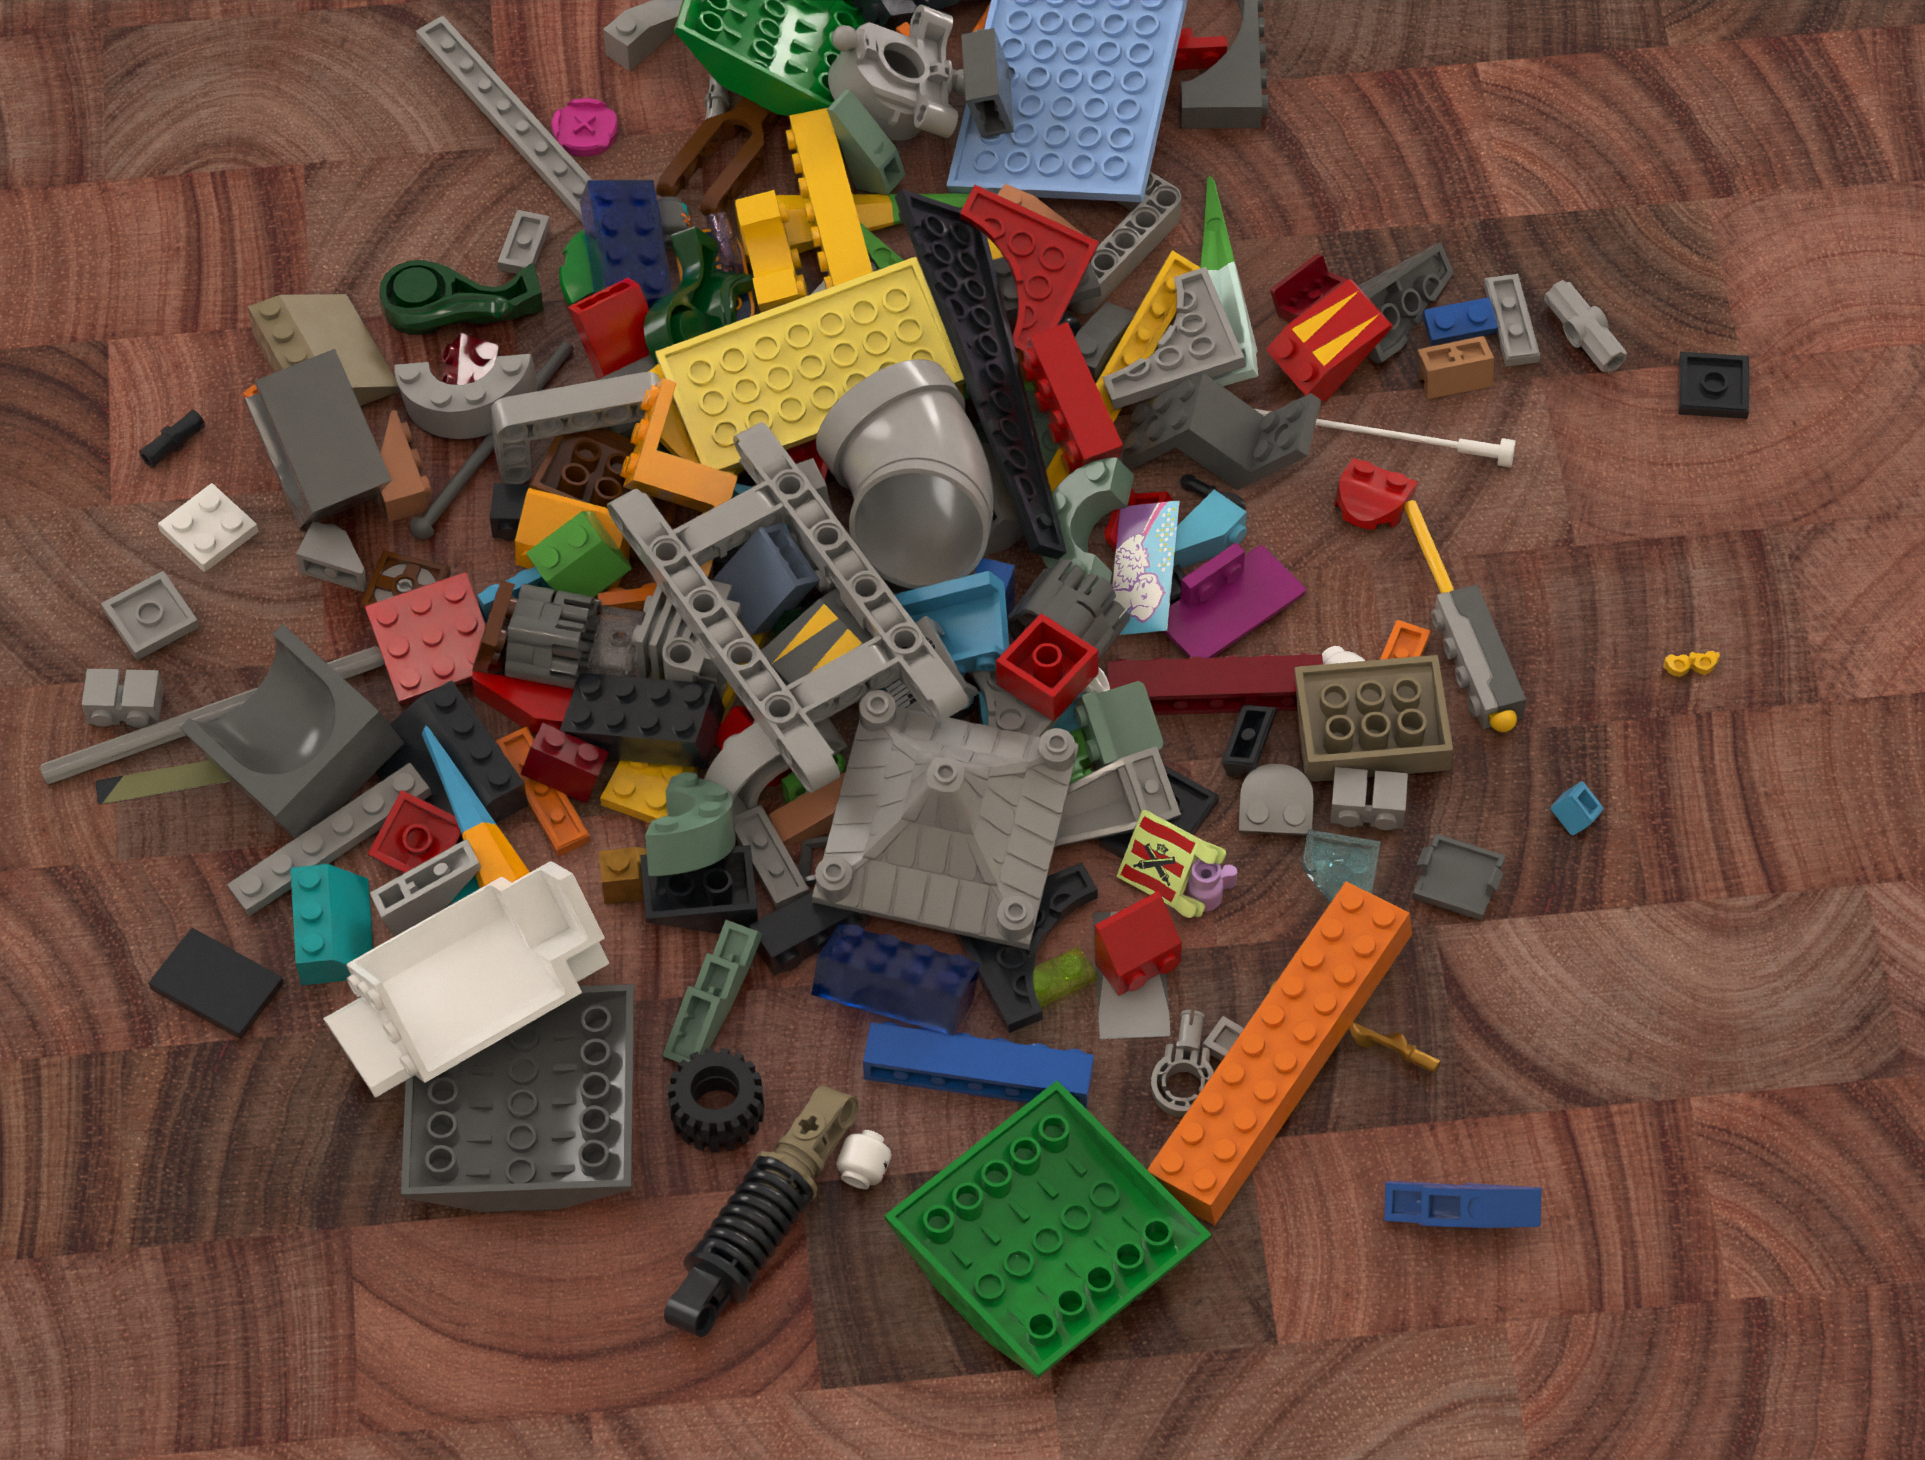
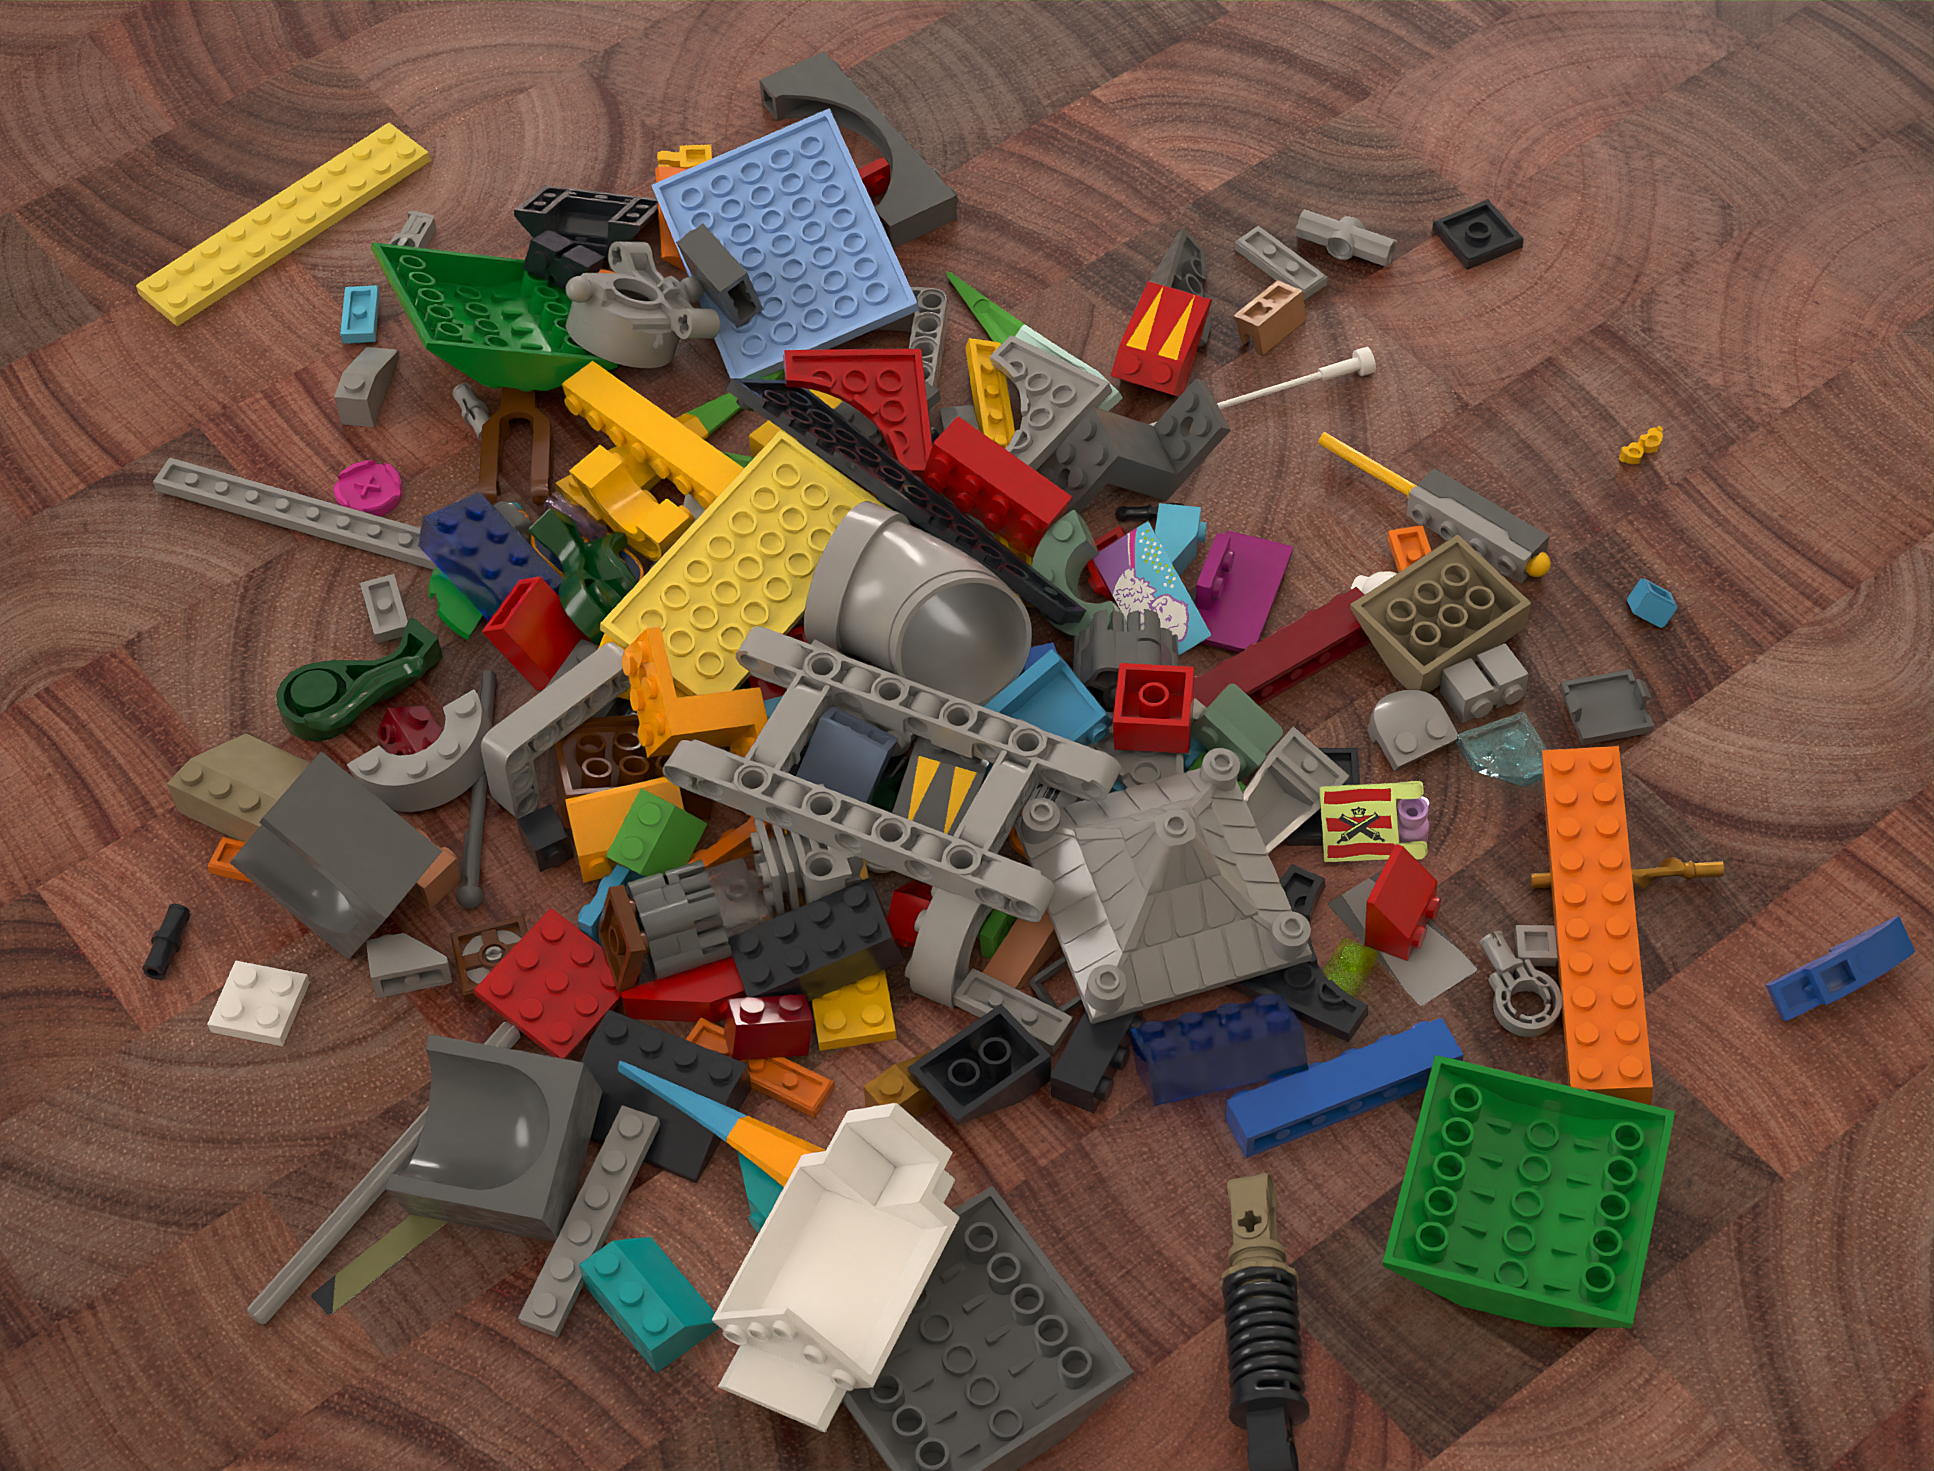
camera: 30 degrees left, 5 degrees down
(135, 702) = (268, 1211): light grey piece -> none
(150, 615) = (259, 1111): light grey plate -> none
(216, 983) = (573, 1418): black tile -> none
(413, 834) = (678, 1172): red slope -> none
(425, 888) = (726, 1212): light grey slope -> none
(696, 828) = (942, 1010): sand green brick -> none
(714, 993) = (1060, 1158): sand green slope -> none
(716, 1073) = (1142, 1221): black tyre -> none
(863, 1159) = (1311, 1227): white head -> none
(865, 146) = (646, 374): sand green slope -> none
(1248, 739) = (1349, 687): black slope -> none
(1304, 288) = (1105, 318): dark red bracket -> none
(1372, 495) = (1284, 446): red slope -> none
(1459, 321) = (1241, 283): blue plate -> none

